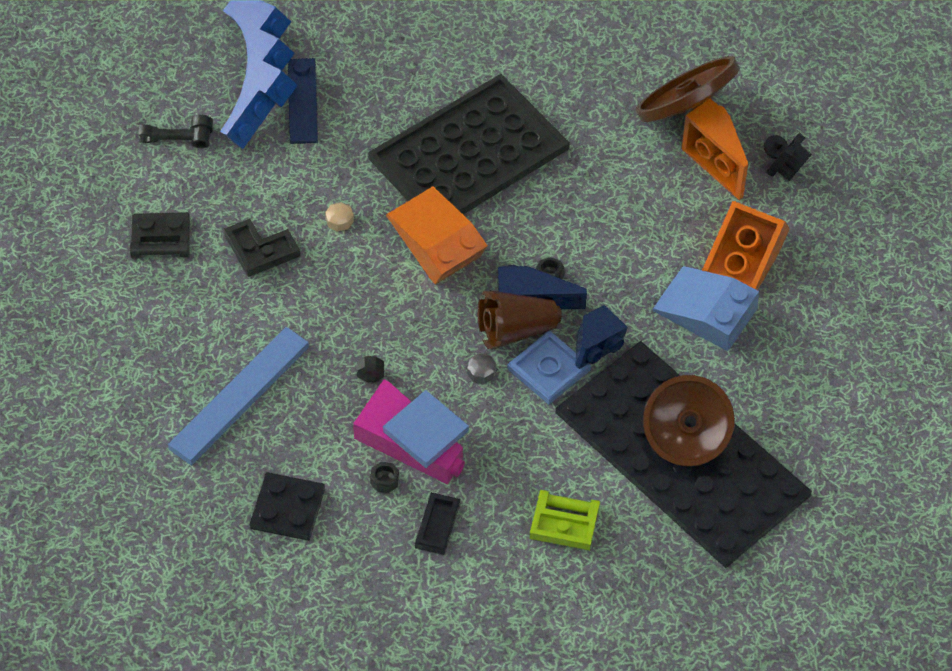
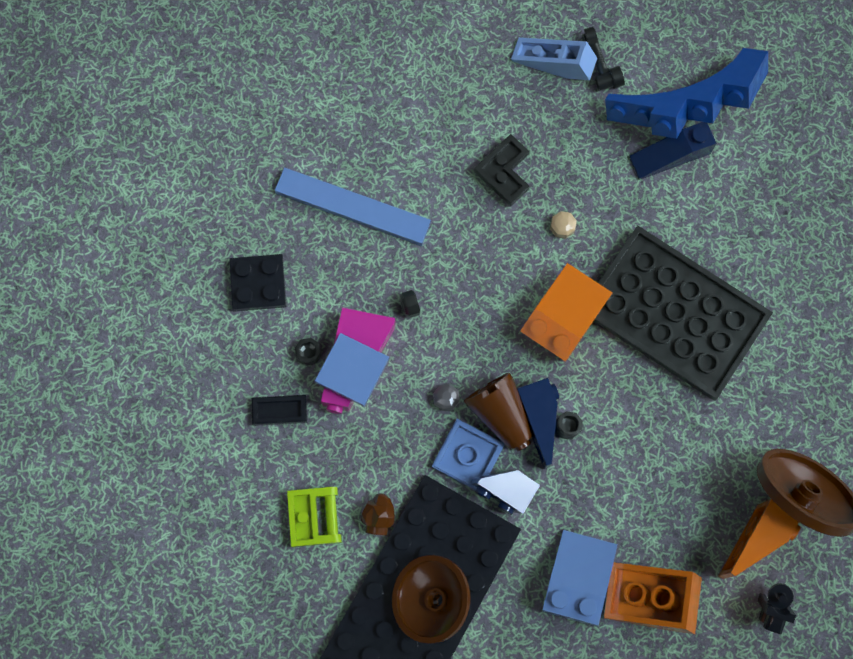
camera: 70 degrees right, 20 degrees up
(156, 168) = (556, 57): none -> light blue slope
(160, 228) = (498, 84): pearl dark grey plate -> none
(583, 458) = (378, 515): none -> reddish brown rock

